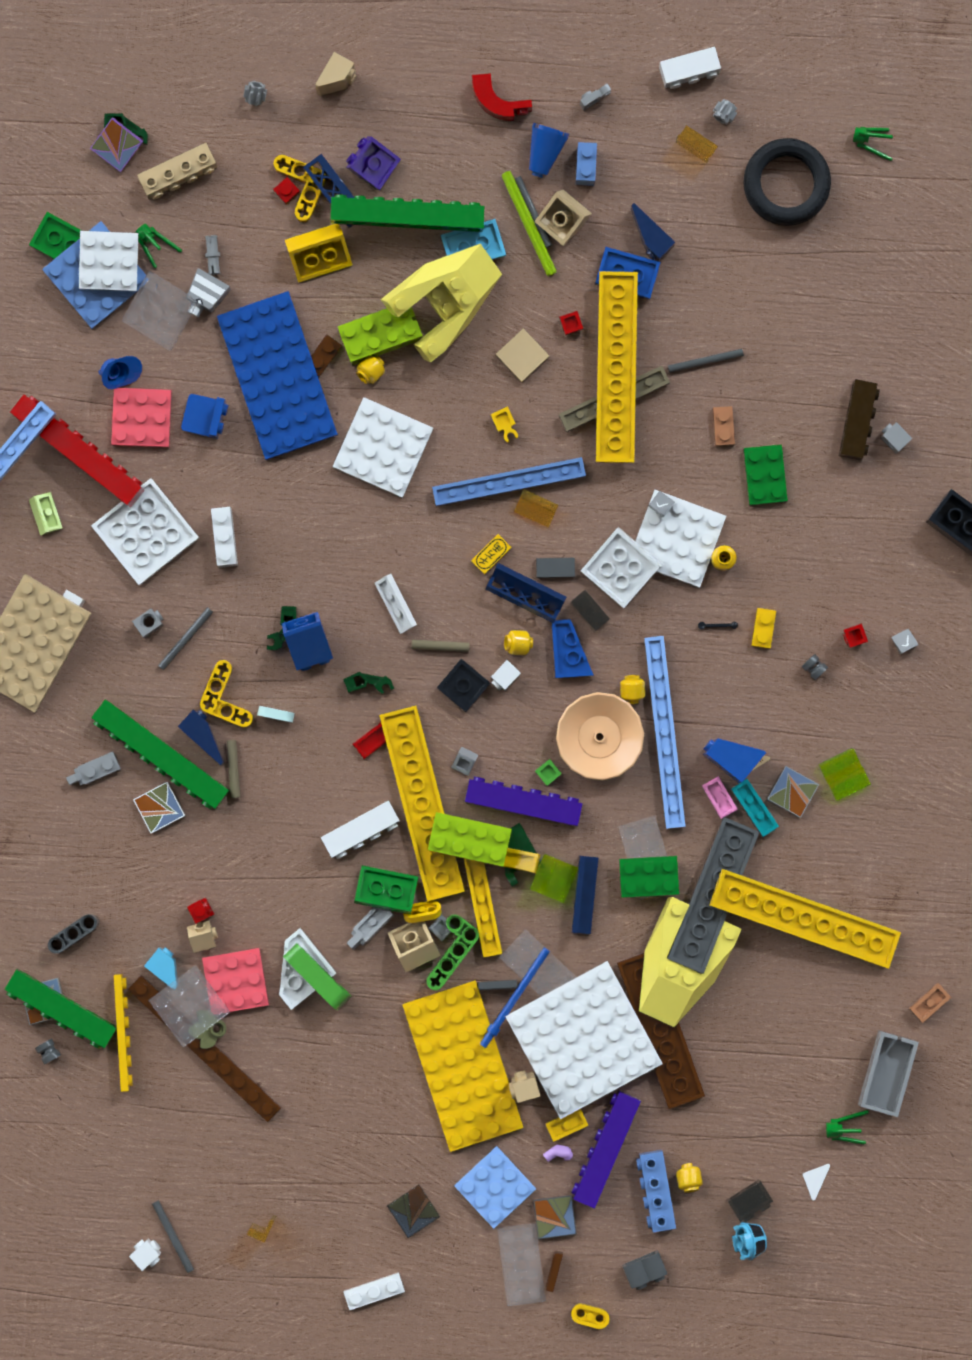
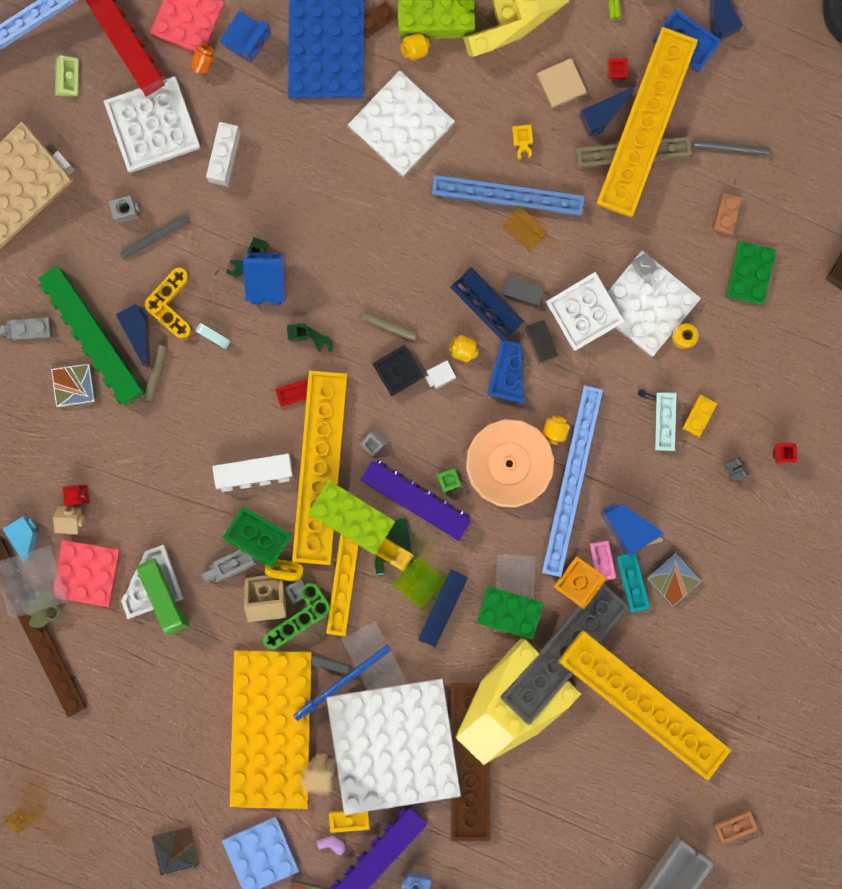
camera: 25 degrees right, 0 degrees up
(171, 452) = (202, 59): none -> orange brick
(395, 603) = (361, 272): white plate -> none
(491, 554) = (467, 257): yellow tile -> none
(570, 374) = (600, 115): none -> dark blue slope
(705, 825) = (580, 582): none -> light orange plate
(733, 645) = (665, 421): none -> light aqua plate
(844, 774) = (728, 580): clear neon green slope -> none
(904, 641) = (828, 474): light grey slope -> none

